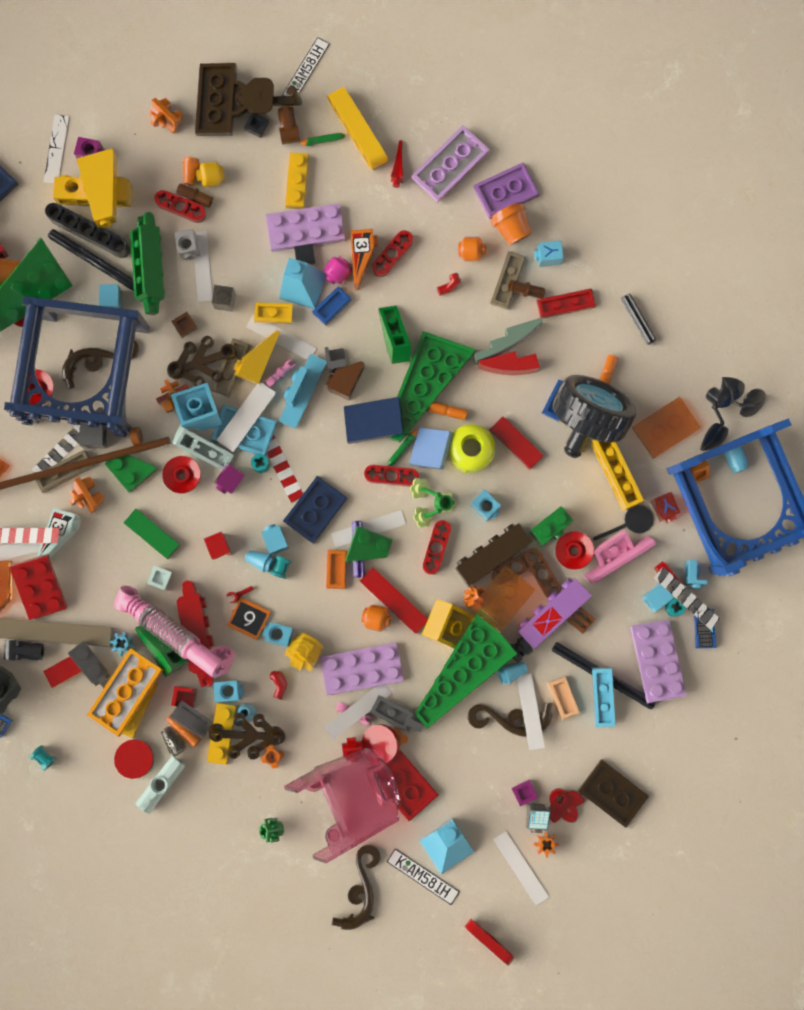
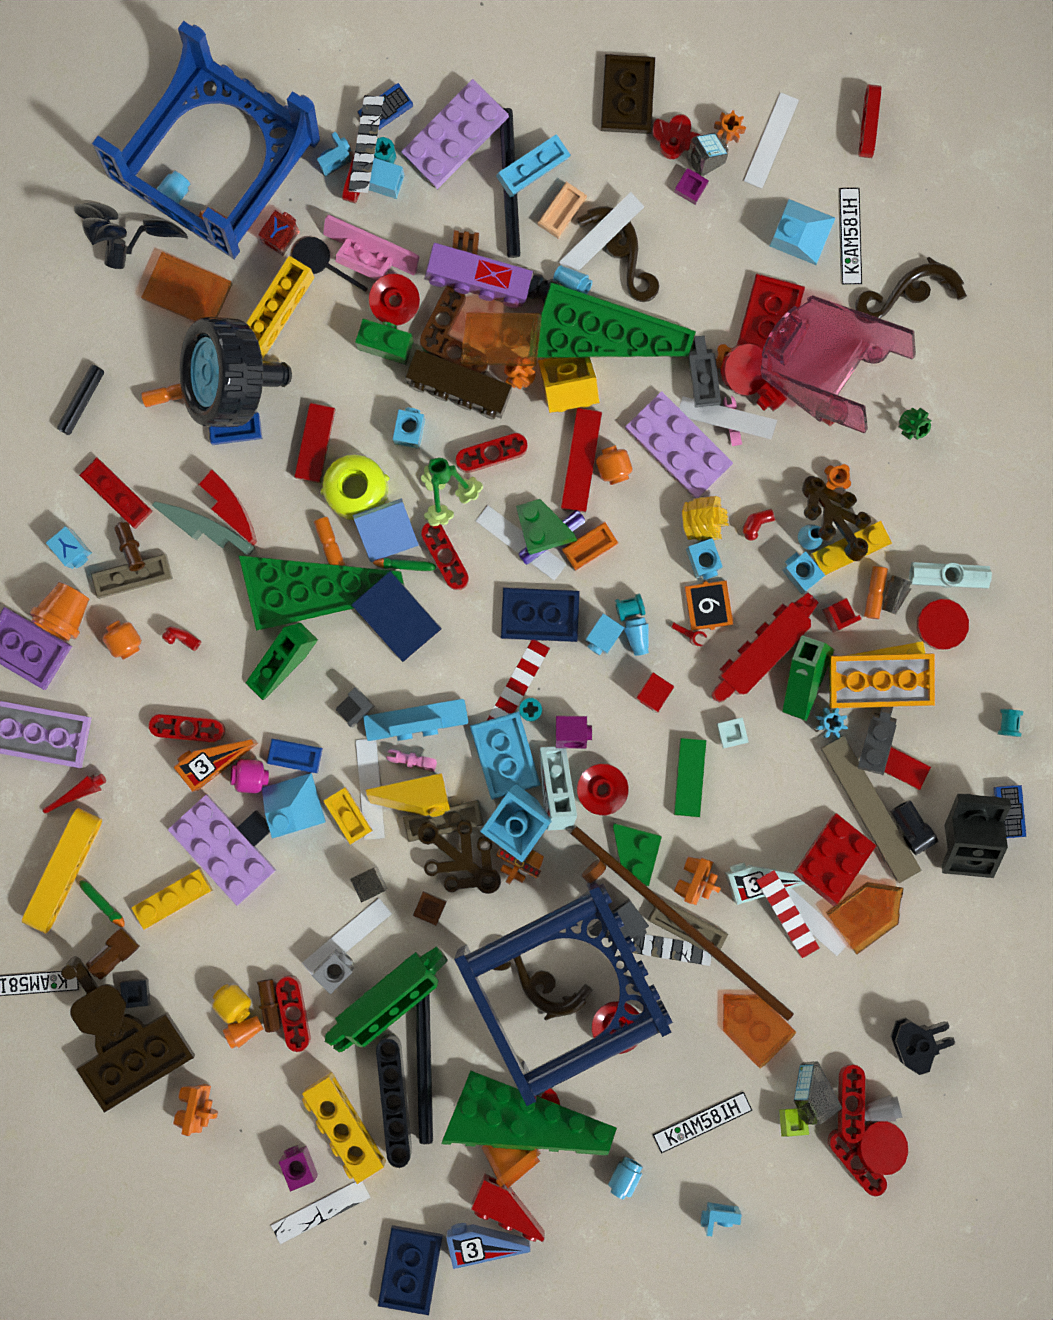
camera: 125 degrees left, 5 degrees up
(100, 184) = (329, 1122): yellow slope -> none
(110, 295) = (456, 1015): medium azure brick -> none
(191, 719) = (860, 589): flat silver tile -> none
(212, 661) = (787, 603): bright pink piece -> none
(246, 416) = (488, 763): white sticker -> none
(345, 380) = (372, 679): reddish brown slope -> none

